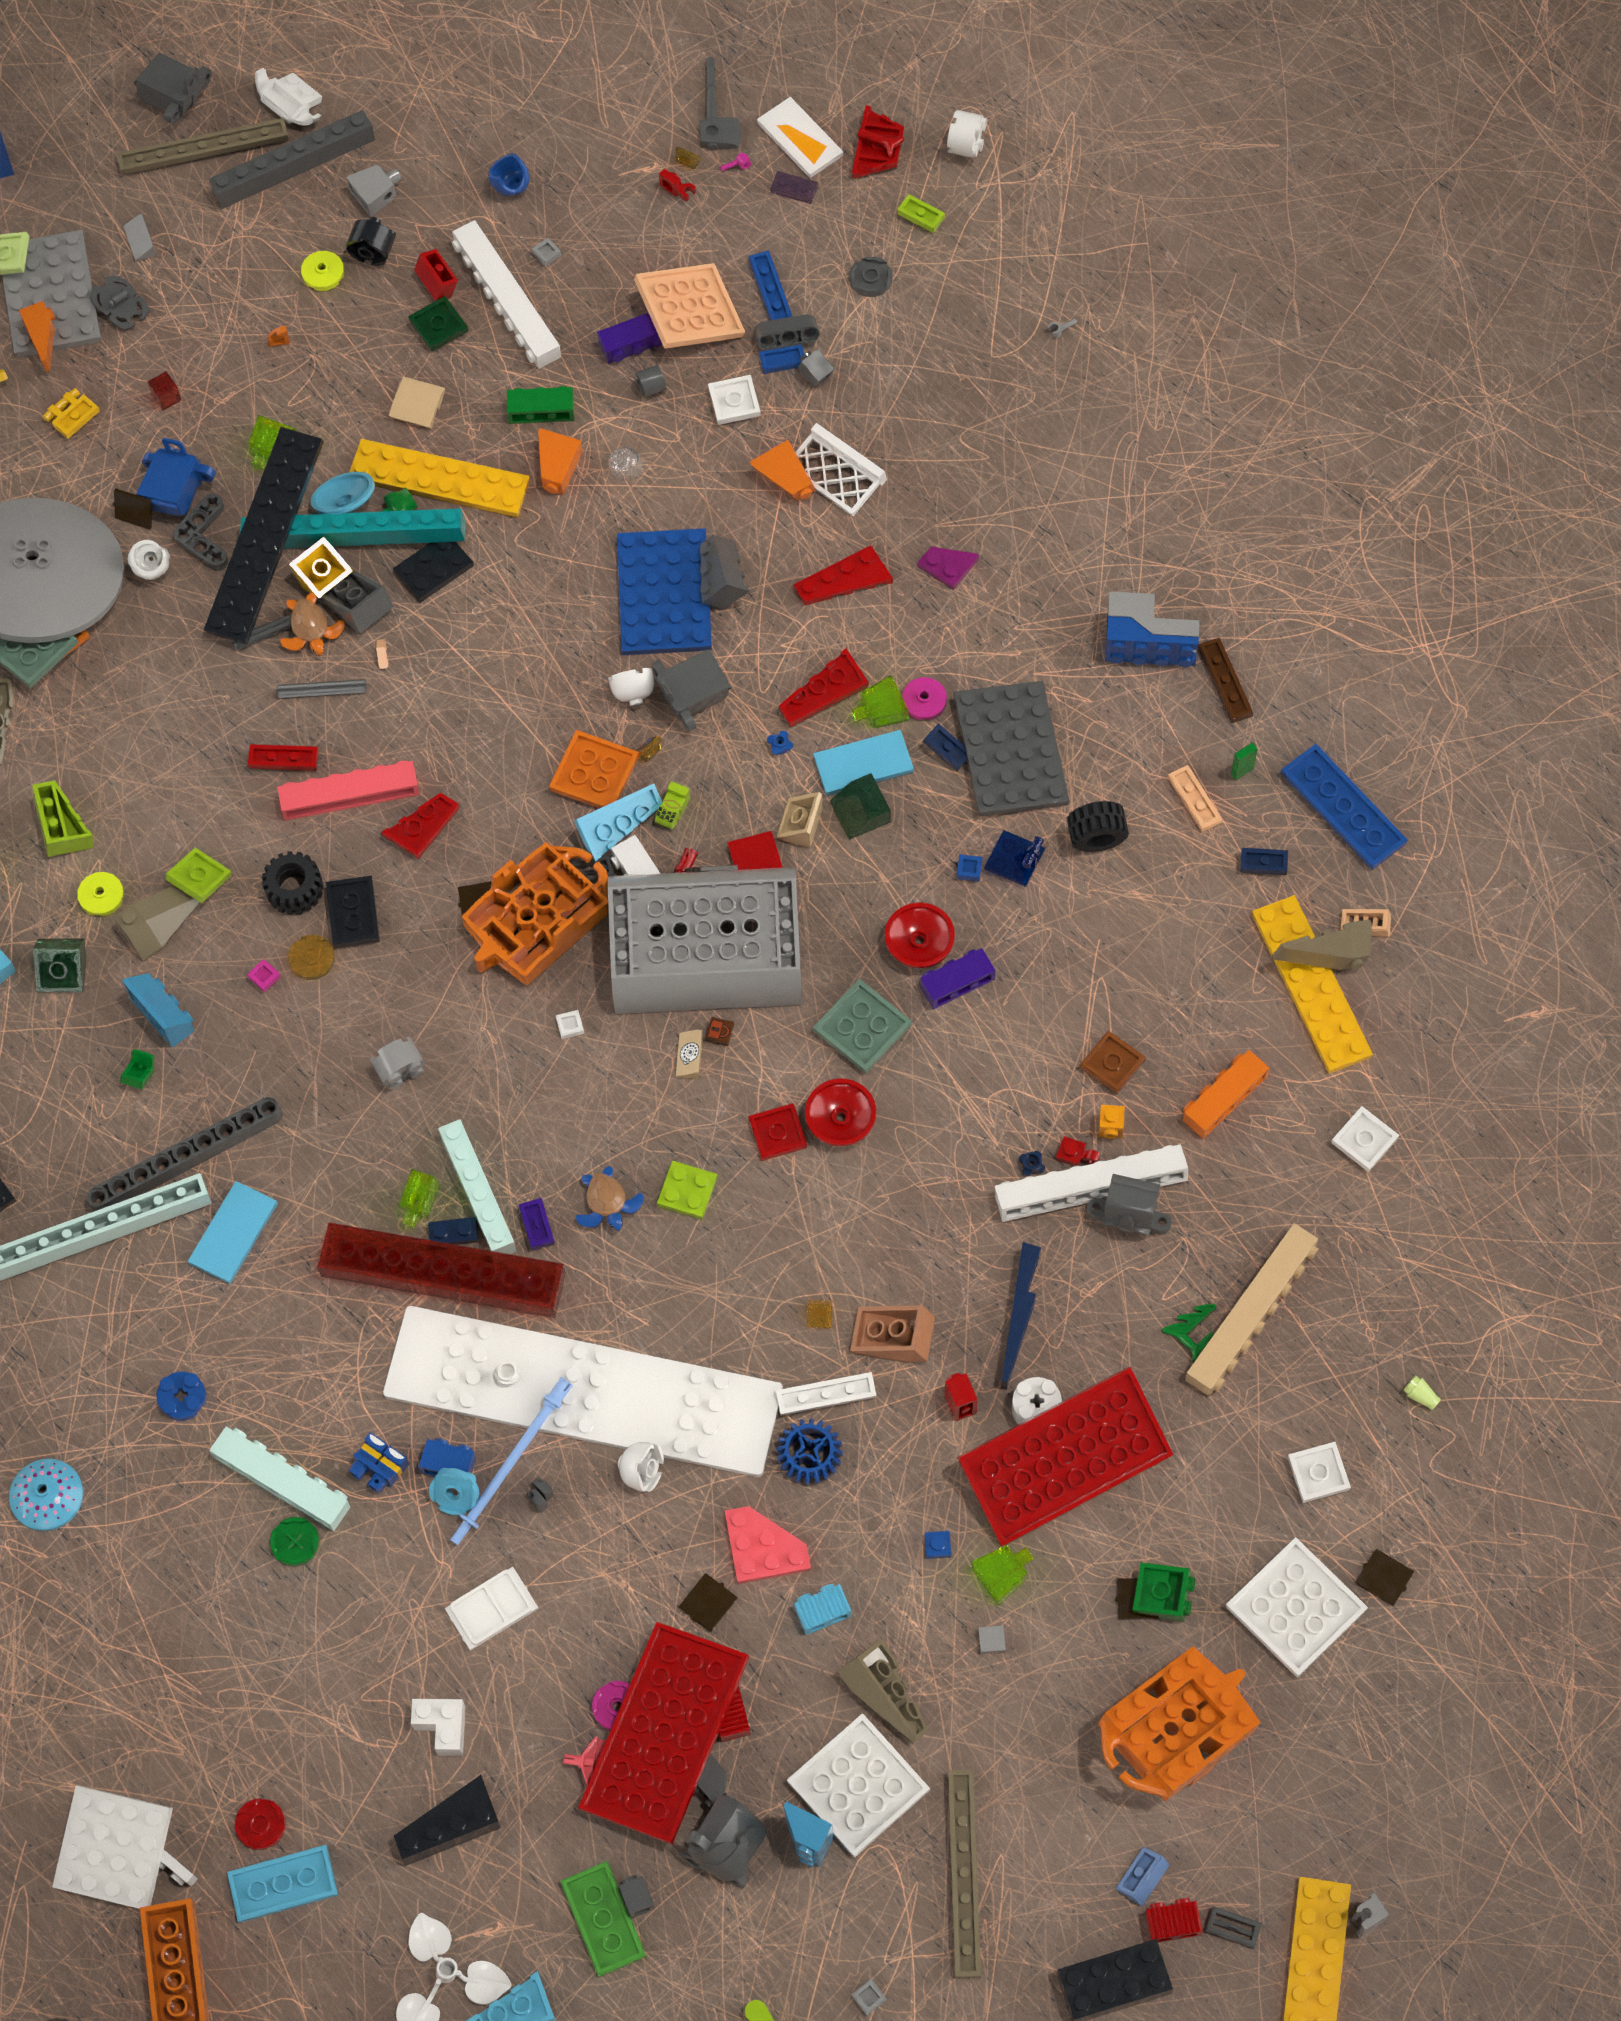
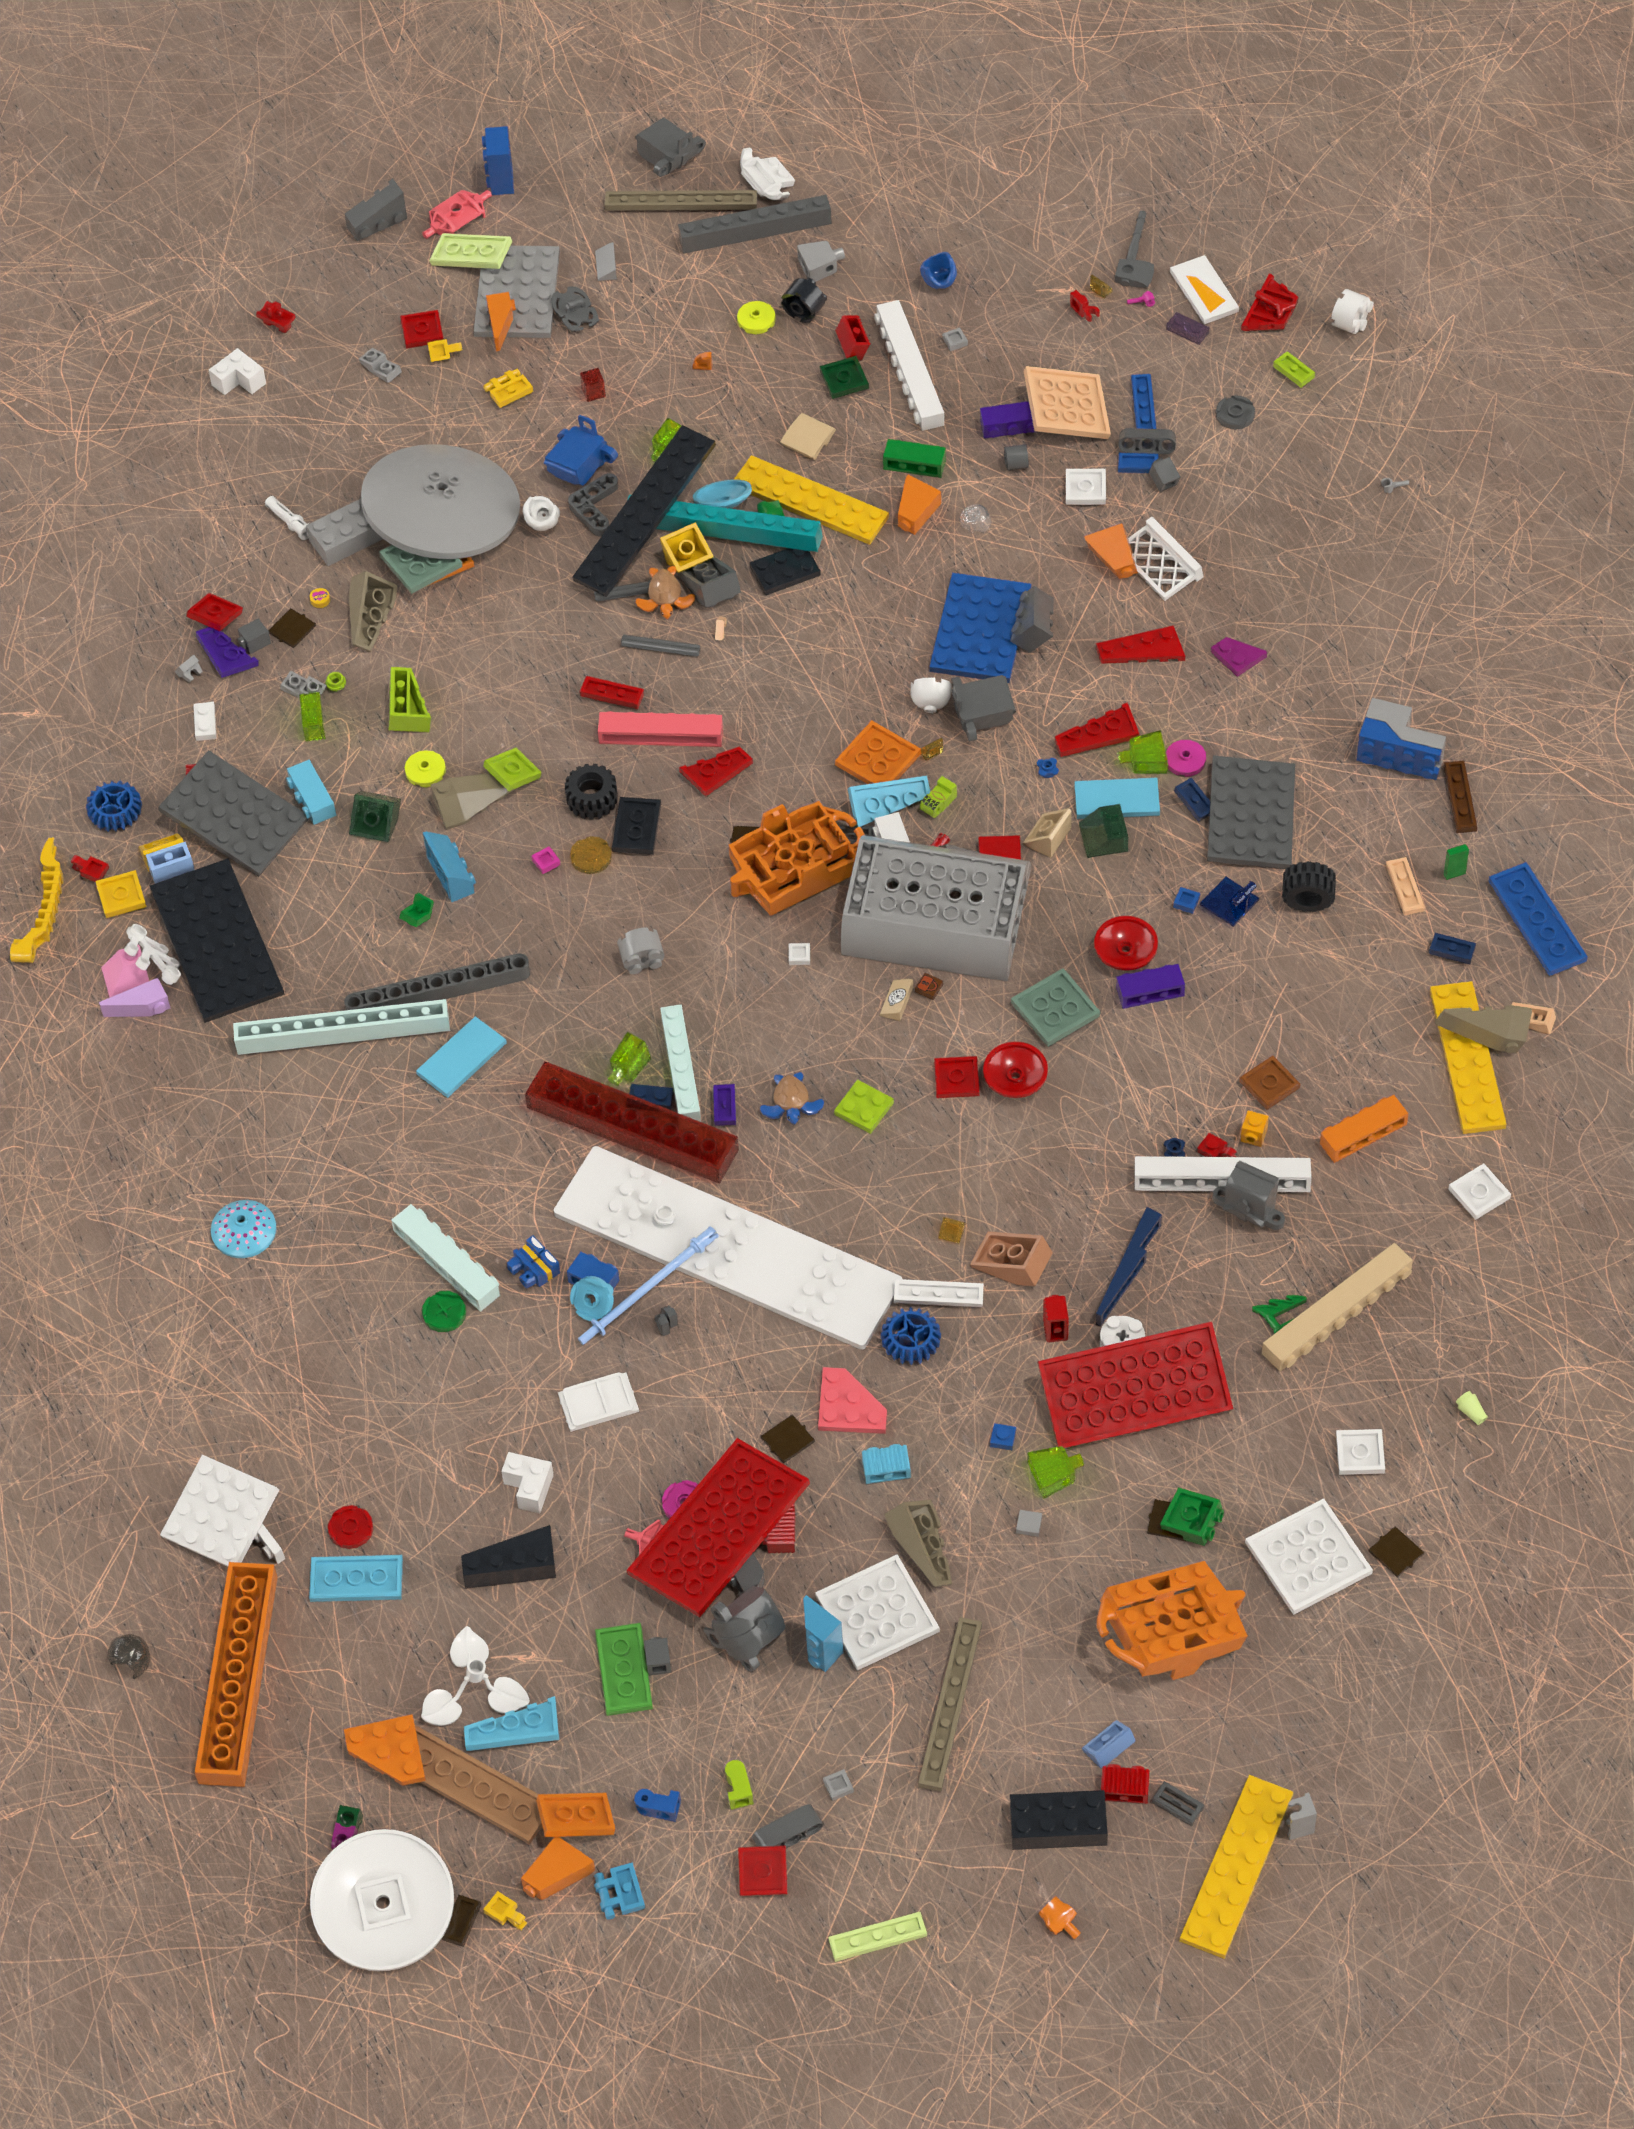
camera: 15 degrees right, 10 degrees down
(133, 508) = (539, 471): dark brown piece -> none
(192, 1403) = (376, 1165): blue plate -> none
(640, 1465) = (760, 1314): white cylinder -> none

